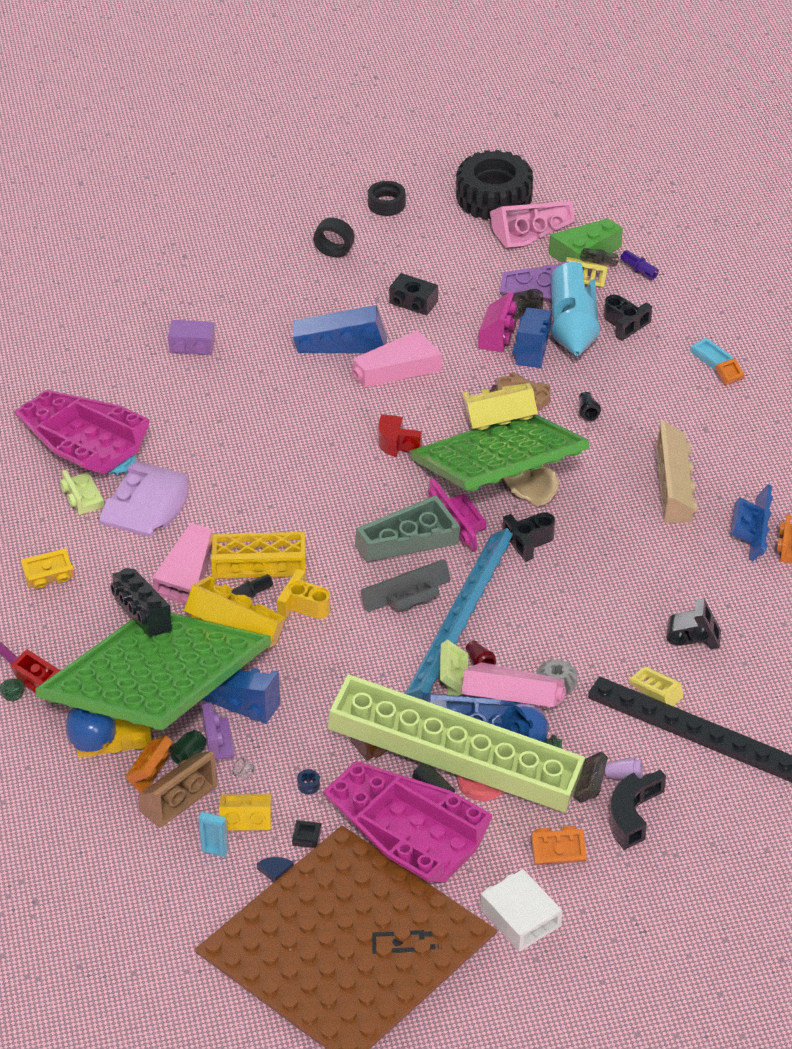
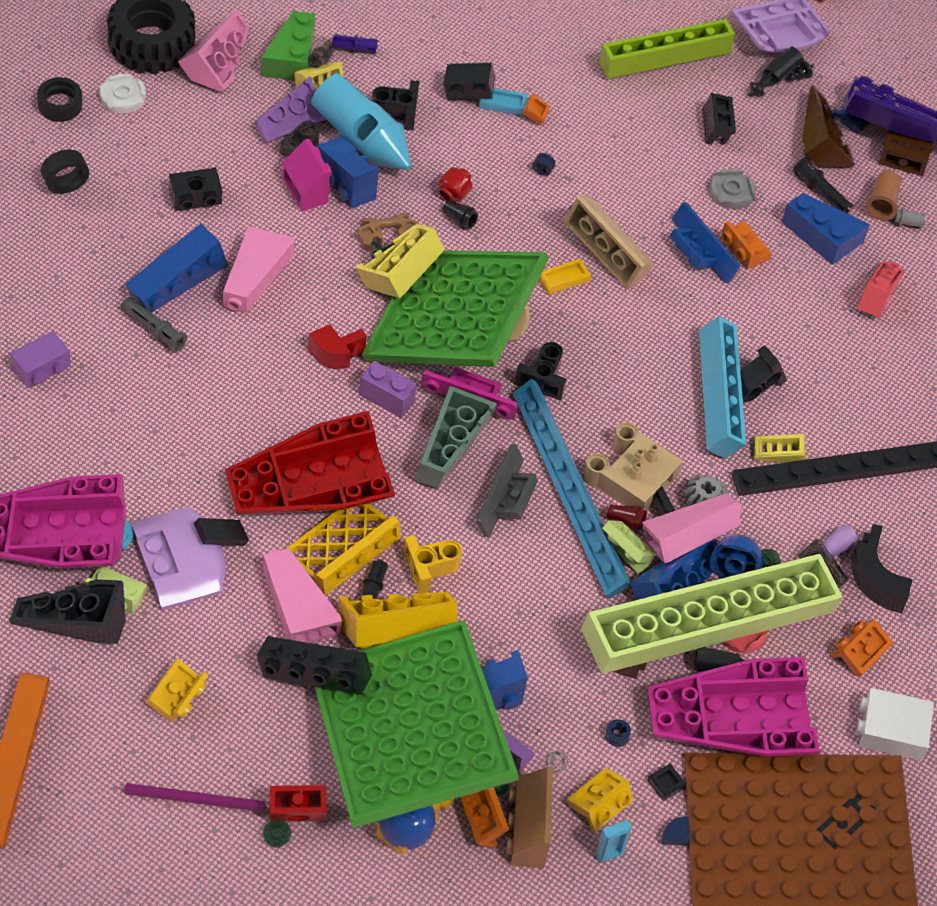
camera: 50 degrees left, 10 degrees up
(42, 490) = (83, 612): none -> black wedge
(183, 496) = (221, 531): none -> black tile
(288, 497) = (315, 470): none -> red wedge
(290, 363) = (161, 330): none -> dark grey pin
(399, 480) = (387, 389): none -> medium lavender brick
(436, 217) = (122, 93): none -> white tile
(521, 634) = (638, 474): none -> tan piece
(605, 385) = (455, 184): none -> red head
(622, 486) = (564, 276): none -> yellow tile
(650, 616) = (722, 387): none -> medium azure brick
(691, 408) = (543, 164): none -> dark blue bush
(694, 326) = (469, 81): none -> black brick

